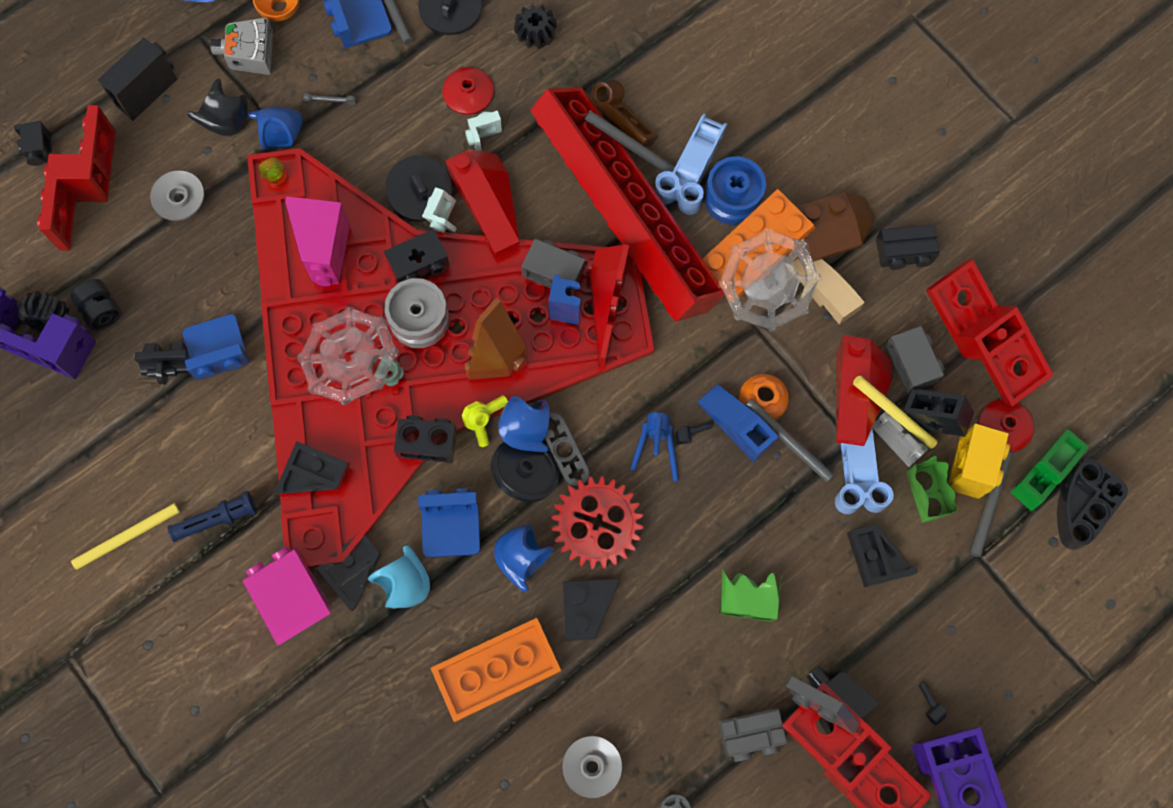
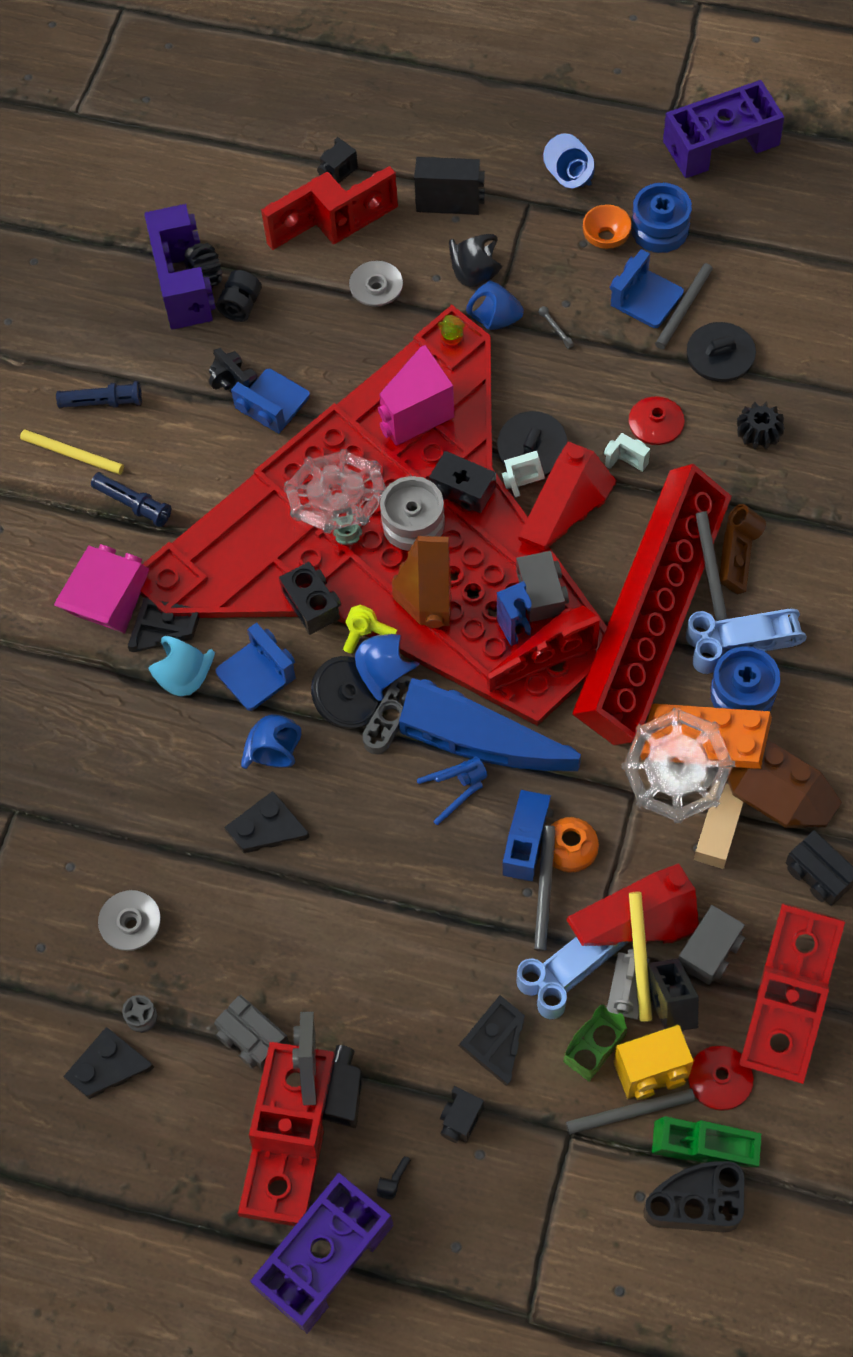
camera: 60 degrees right, 10 degrees down
(101, 467) = (112, 395): none -> dark blue pin
(246, 46) = (548, 237): light grey torso -> none
(311, 471) = (219, 535): black wing -> none
(495, 670) = (159, 790): orange plate -> none
(587, 547) = (319, 789): red gear -> none
(629, 401) = (472, 731): none -> blue wedge
(683, 434) = (483, 798): black hand -> none
(746, 600) = (372, 950): bright green piece -> none
(921, 623) = (461, 1115): none -> black brick

